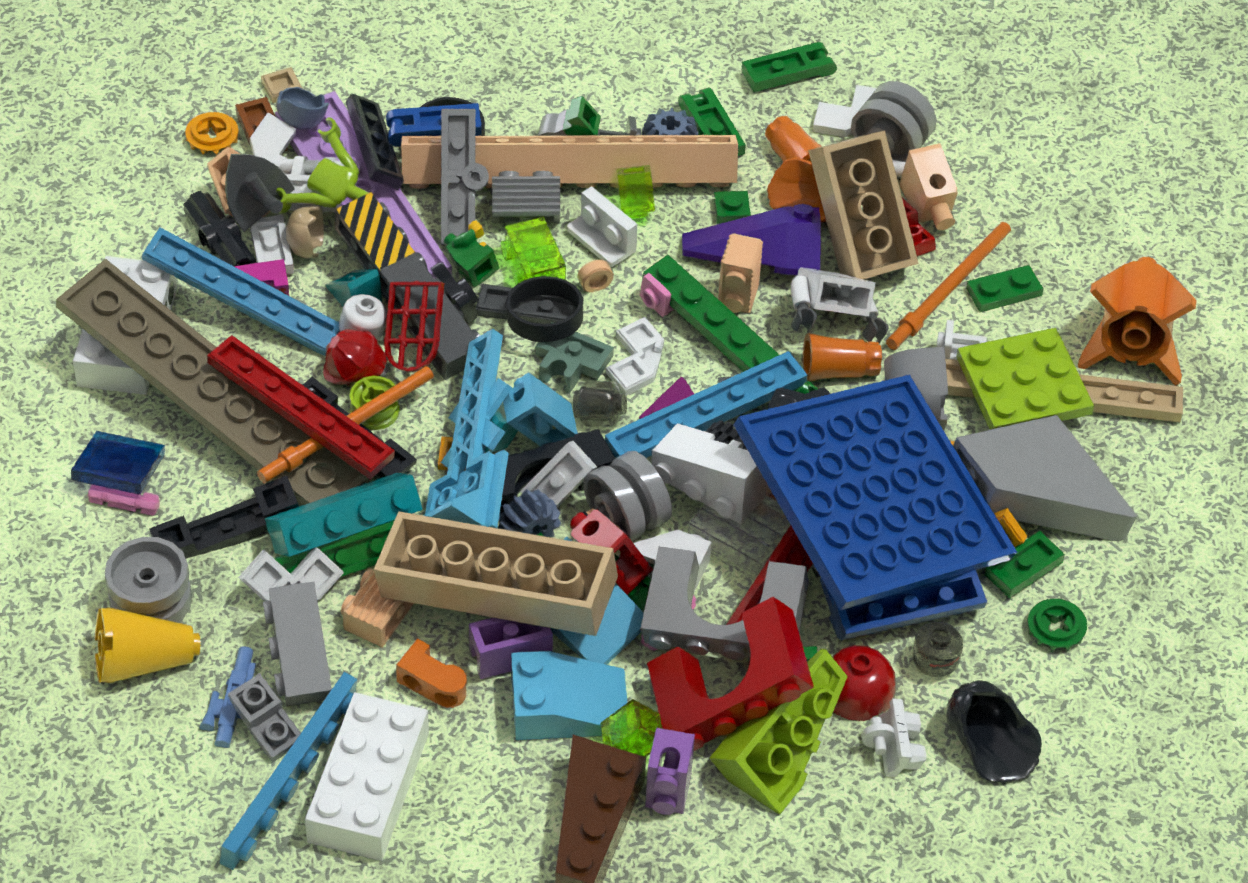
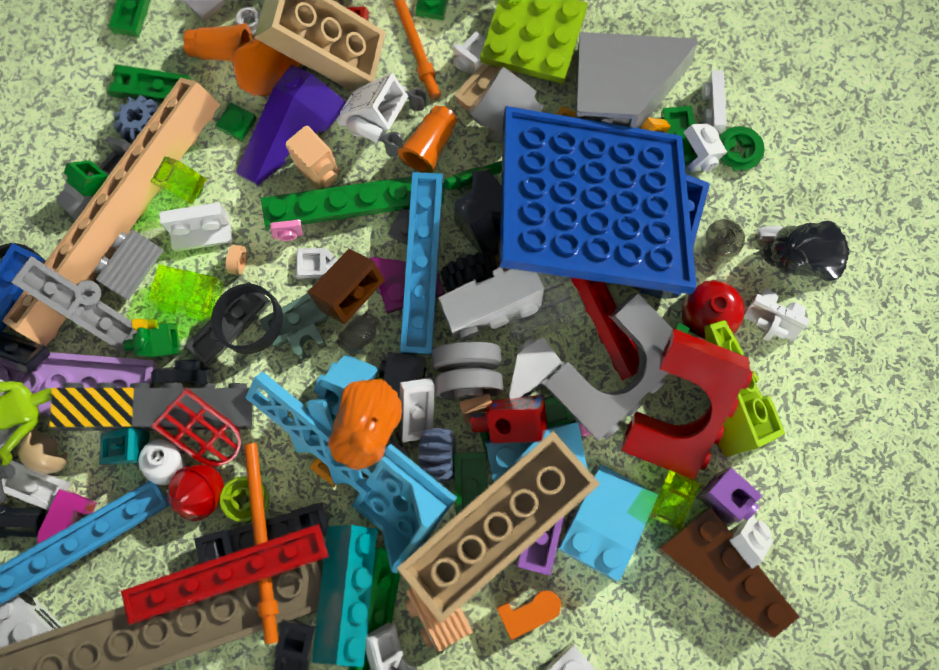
camera: 50 degrees left, 25 degrees up
(513, 421) = (364, 423): none -> orange hair
(635, 361) = (346, 286): none -> reddish brown brick
(640, 814) = (752, 541): none -> white plate
(1025, 582) = (707, 146): none -> white bracket
(1091, 571) = (714, 93): none -> white plate

